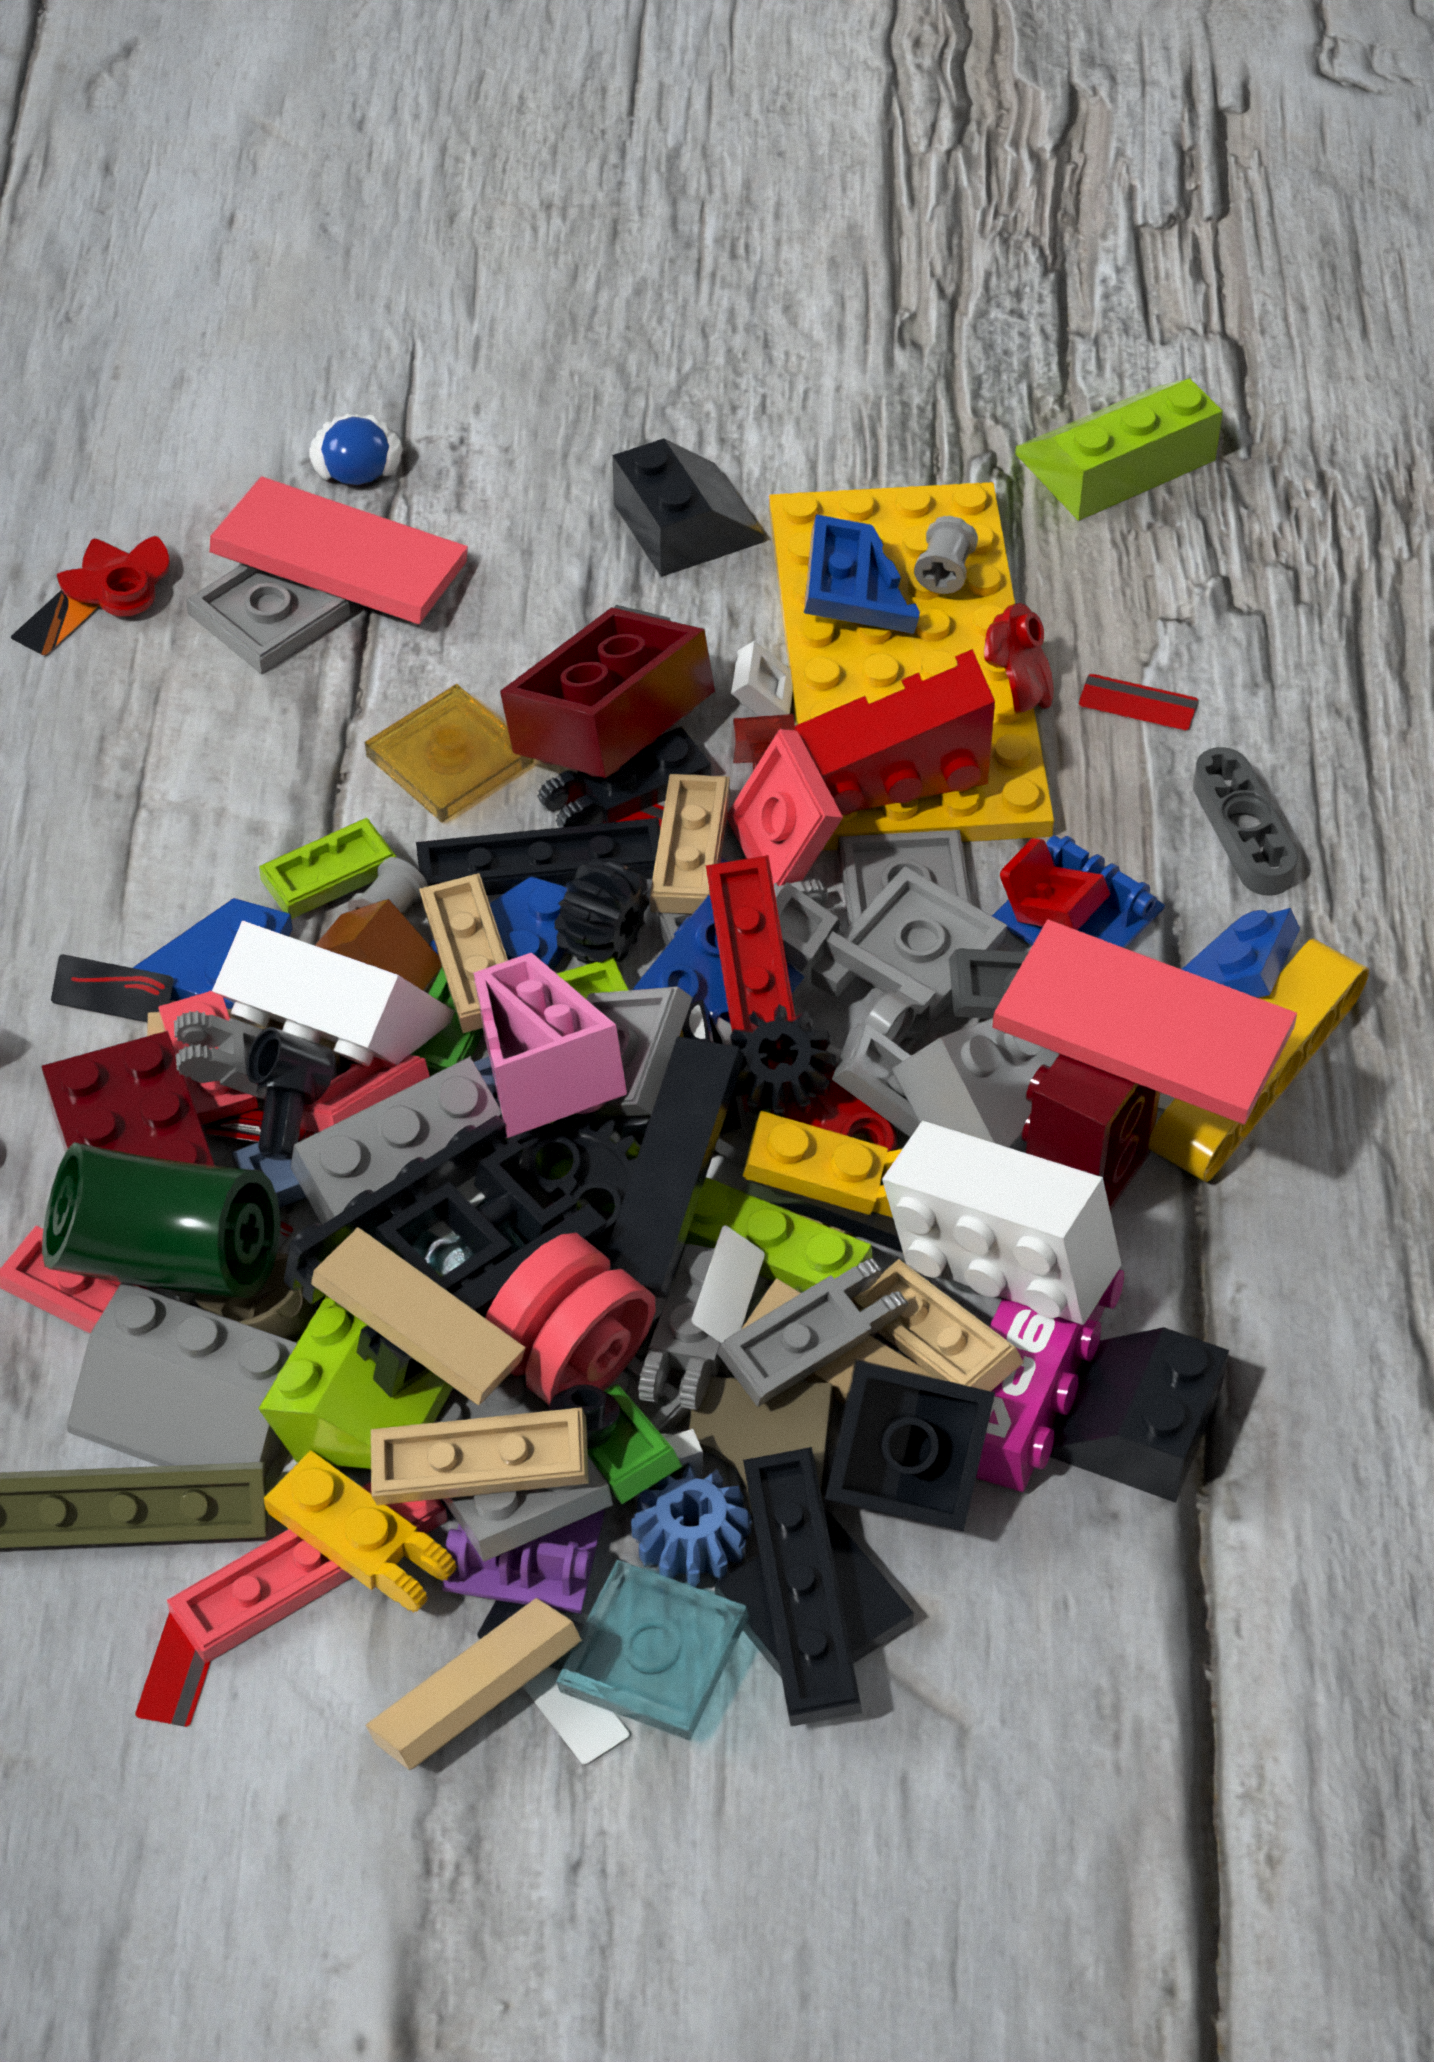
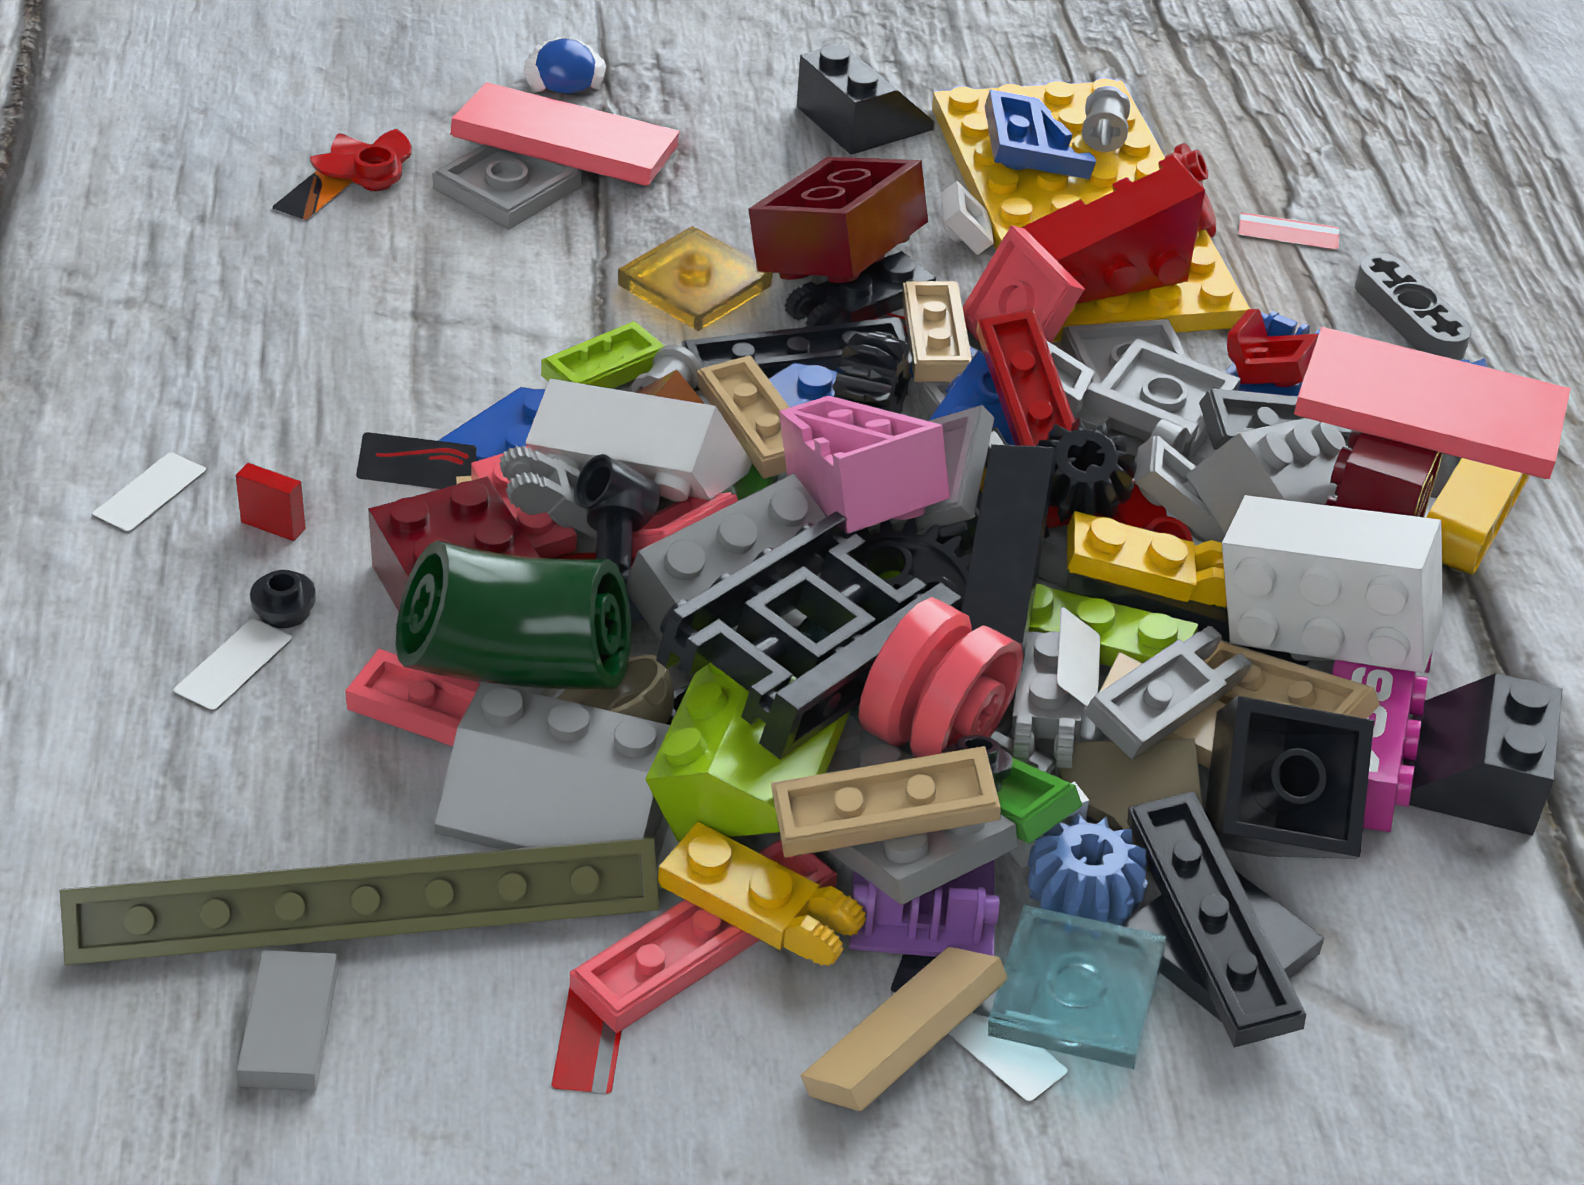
camera: 10 degrees left, 10 degrees down
(418, 1316) = (810, 668): tan tile -> none
(754, 734) = (971, 255): clear red tile -> none
(1126, 447) = (1226, 55): lime slope -> none

